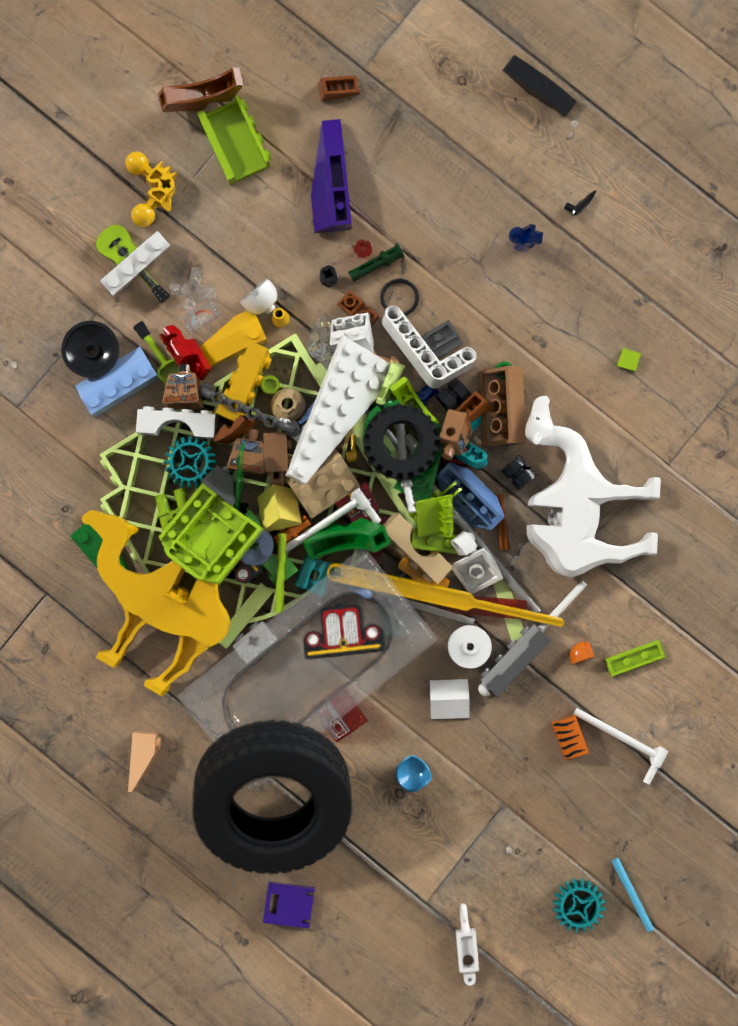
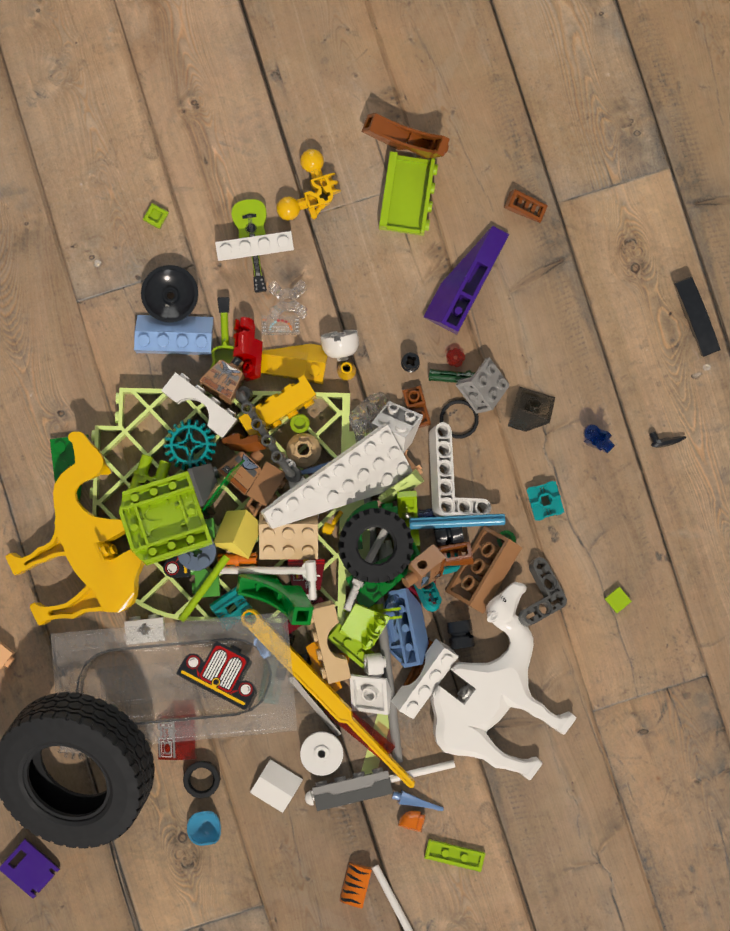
camera: 25 degrees right, 0 degrees up
(36, 294) = (155, 216): none -> lime tile
(246, 613) = (154, 602): yellowish green sticker -> none
(398, 734) = (187, 782): none -> black tyre
(403, 257) = (484, 388): none -> light grey bracket
(442, 339) = (470, 479): dark grey plate -> none
(454, 251) = (530, 410): none -> clear smoke slope
(455, 379) = (457, 521): none -> dark azure axle
(514, 550) = (412, 697): none -> white arch
(515, 328) = (550, 490): none -> teal piece
(566, 637) = (407, 799): none -> medium blue piece
(570, 392) = (548, 594): none -> dark grey beam

